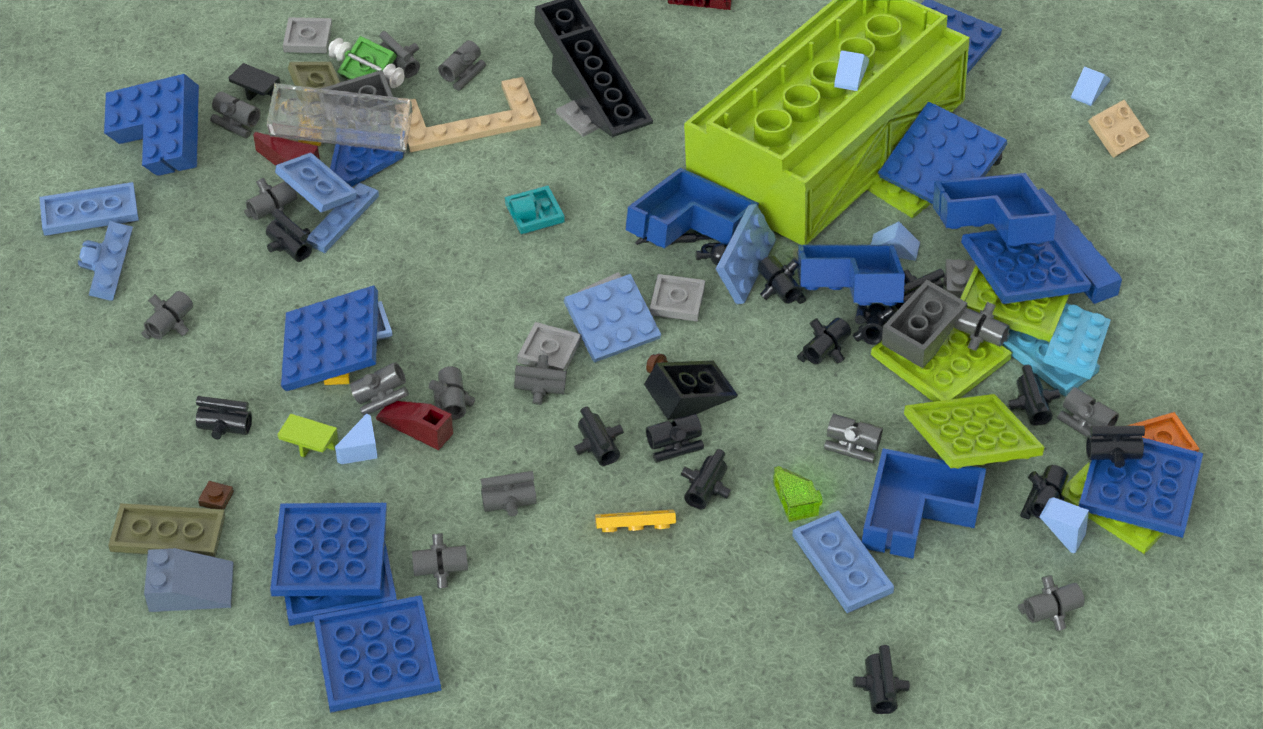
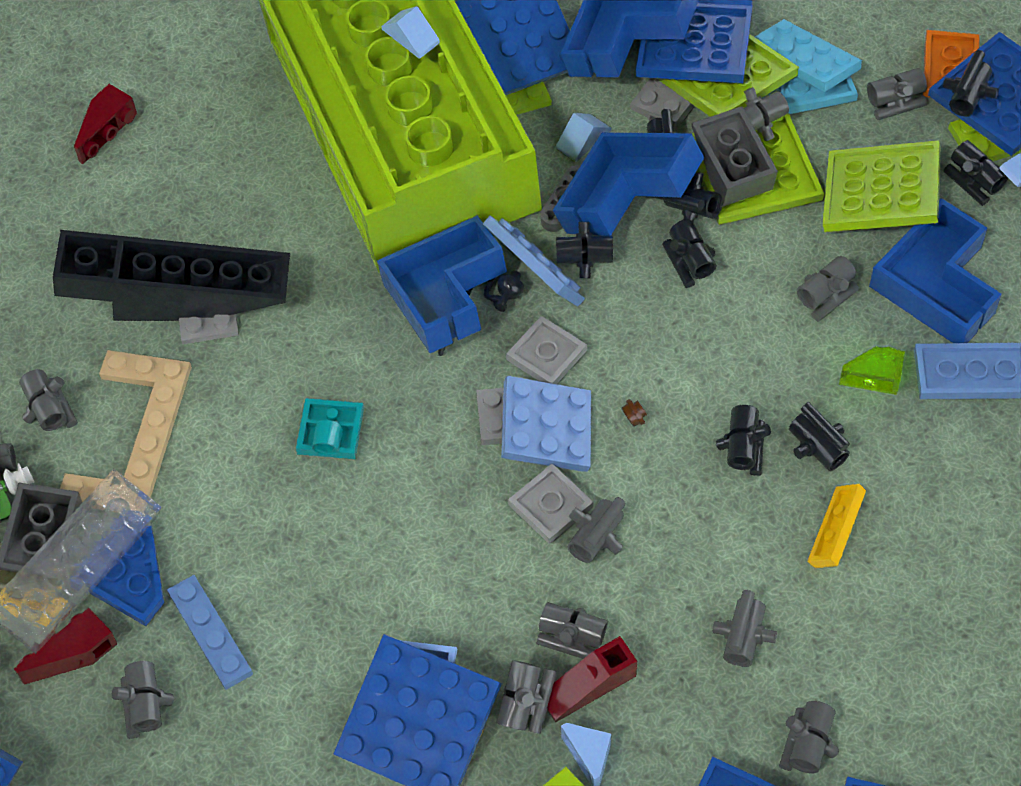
camera: 60 degrees left, 10 degrees up
(288, 237) = (215, 702): black pin -> none
(316, 182) = (158, 632): medium blue plate -> none
(598, 438) = (710, 512): black pin -> none
(688, 387) = (684, 399): black slope -> none
(1033, 397) = (852, 122): black pin -> none

